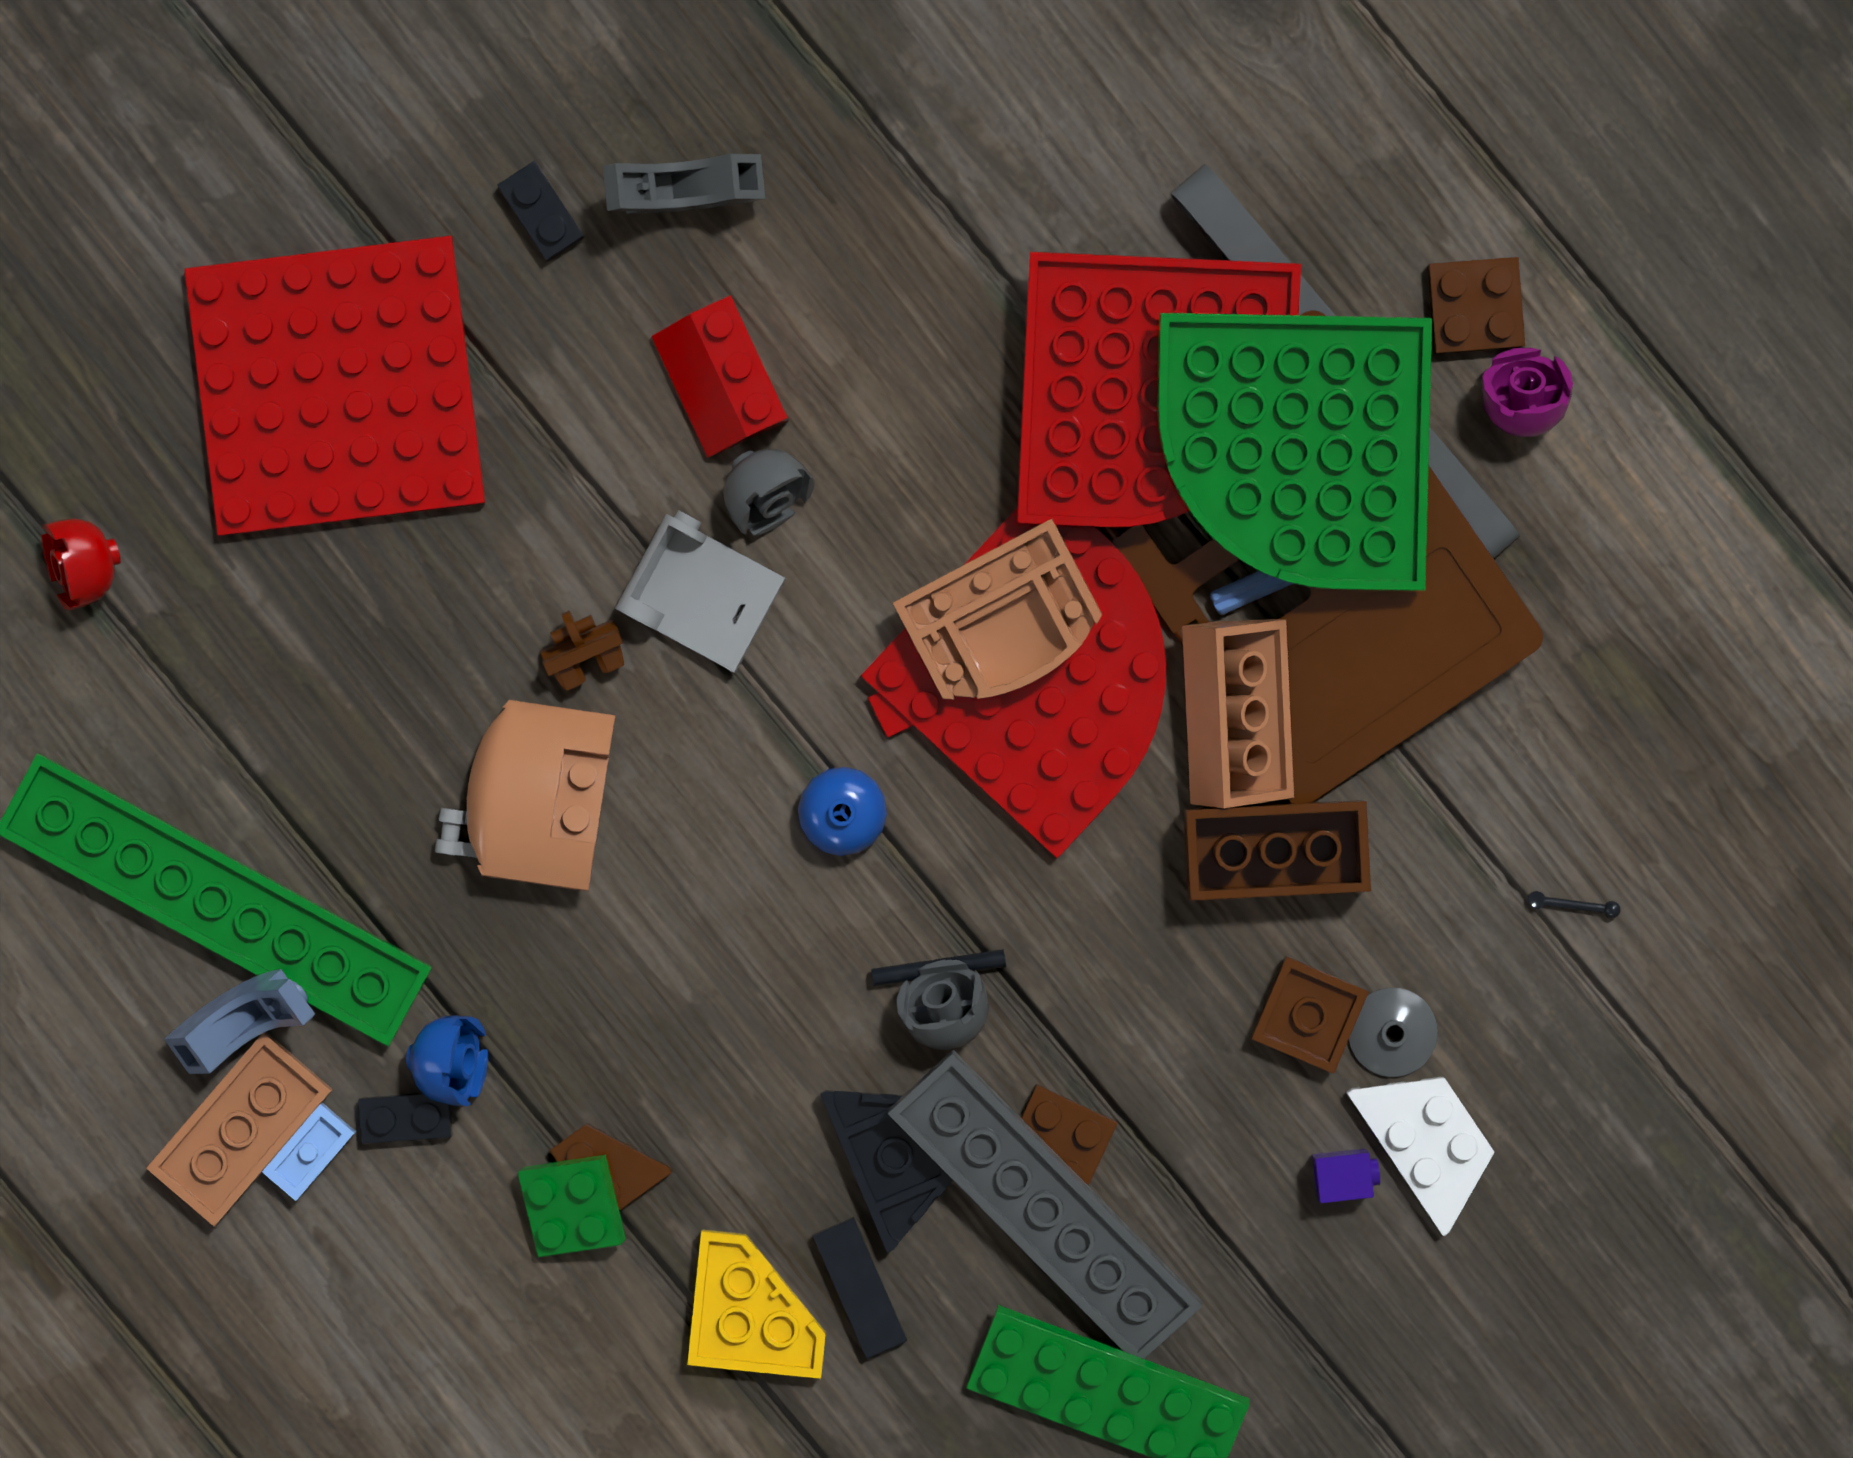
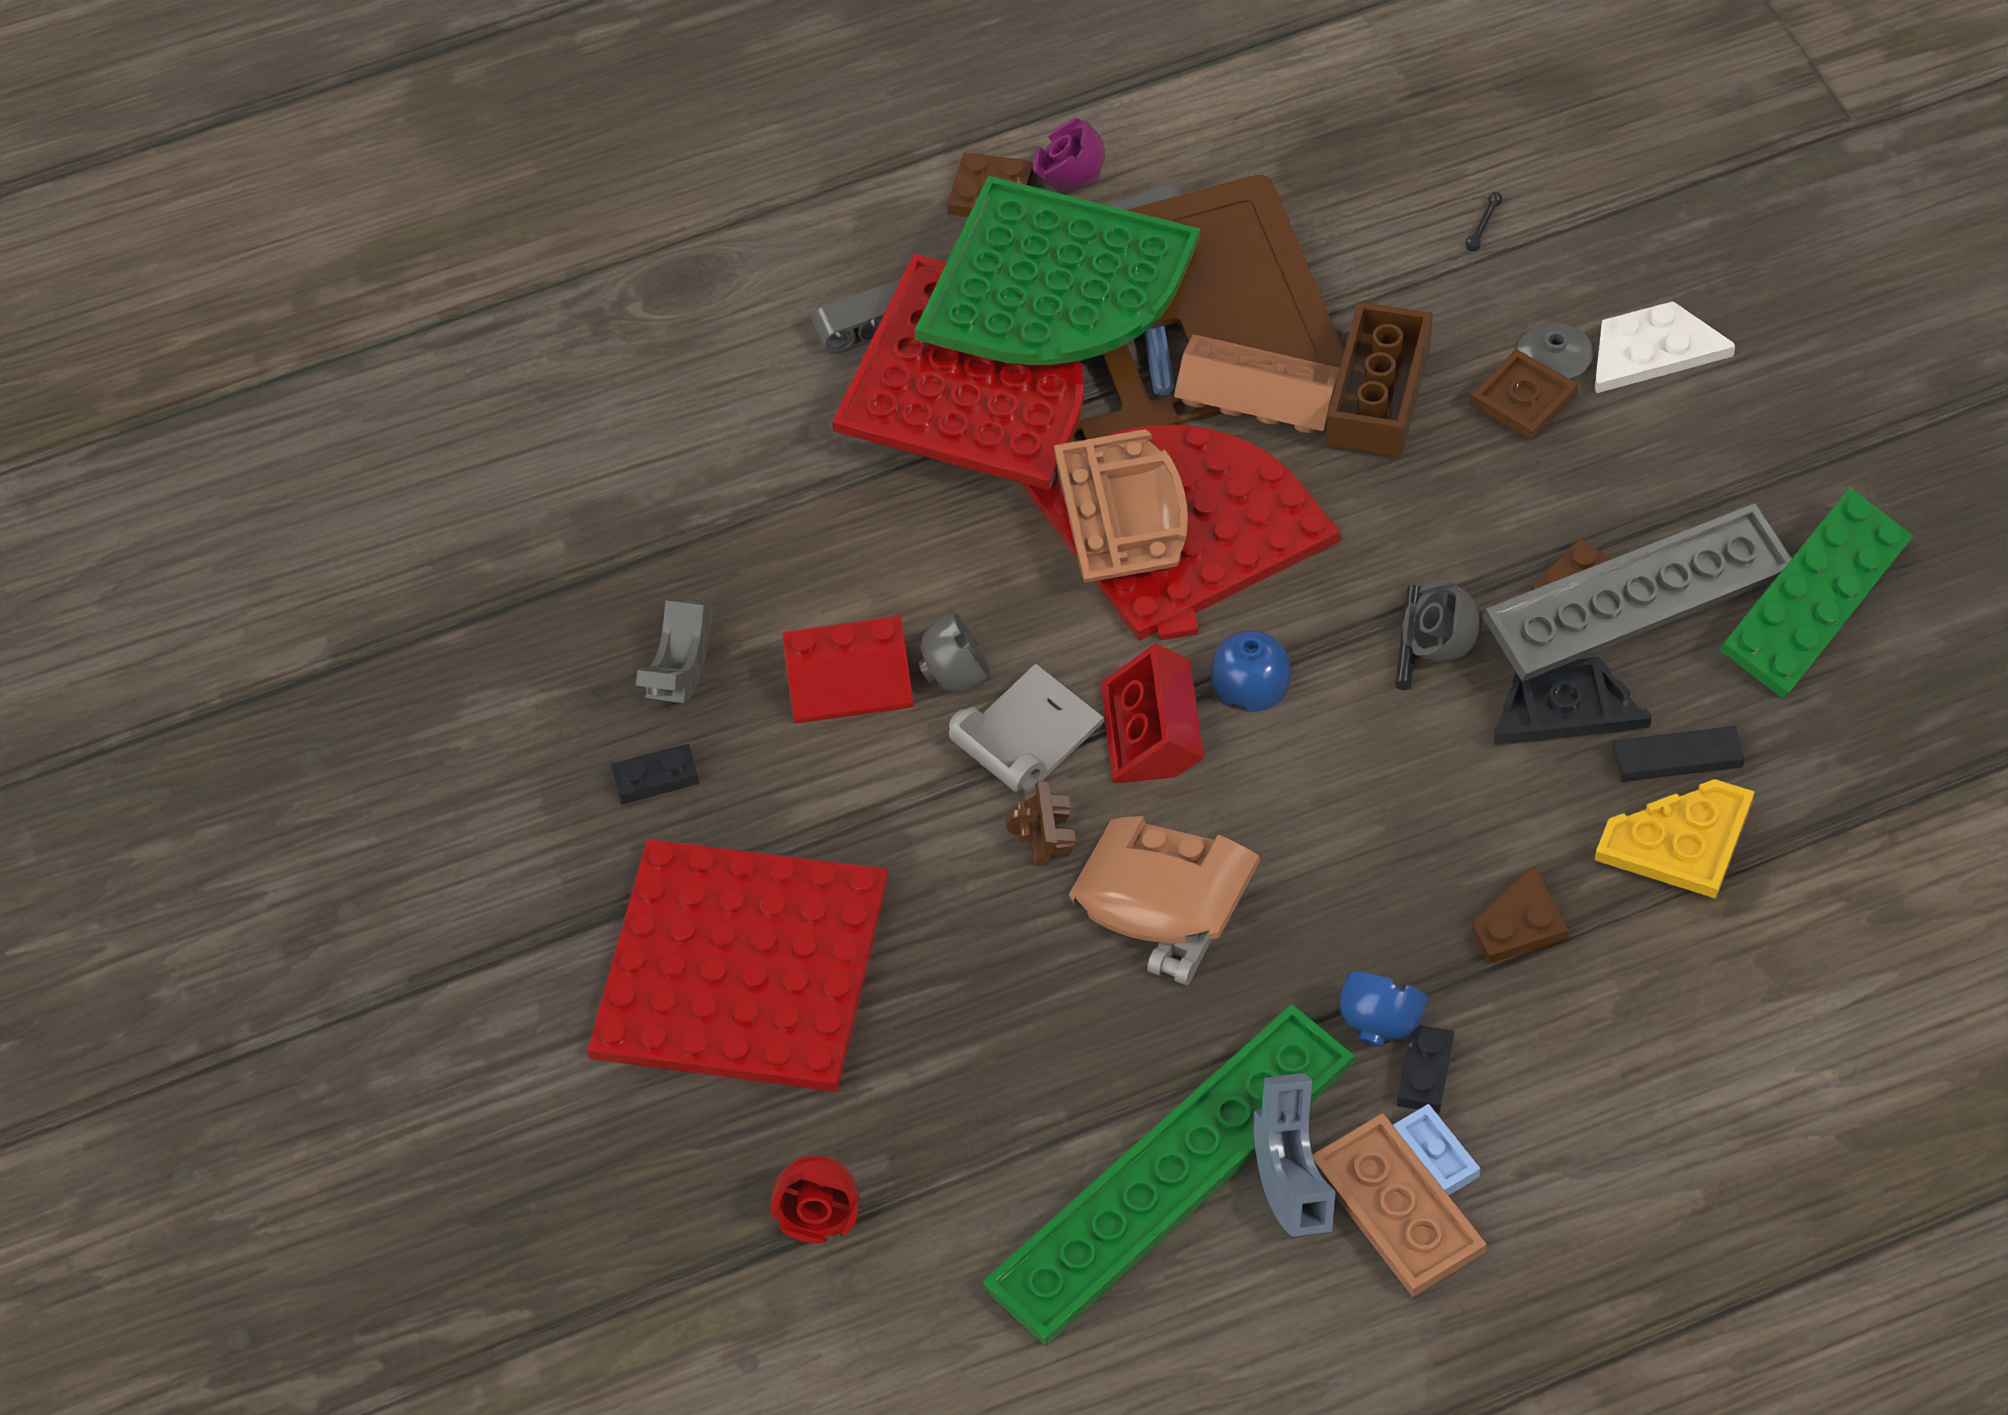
camera: 65 degrees left, 35 degrees down
(571, 1205) = (1545, 944): green plate -> none
(747, 724) = (1151, 717): none -> red slope
(1345, 1175) = (1666, 397): dark purple brick -> none

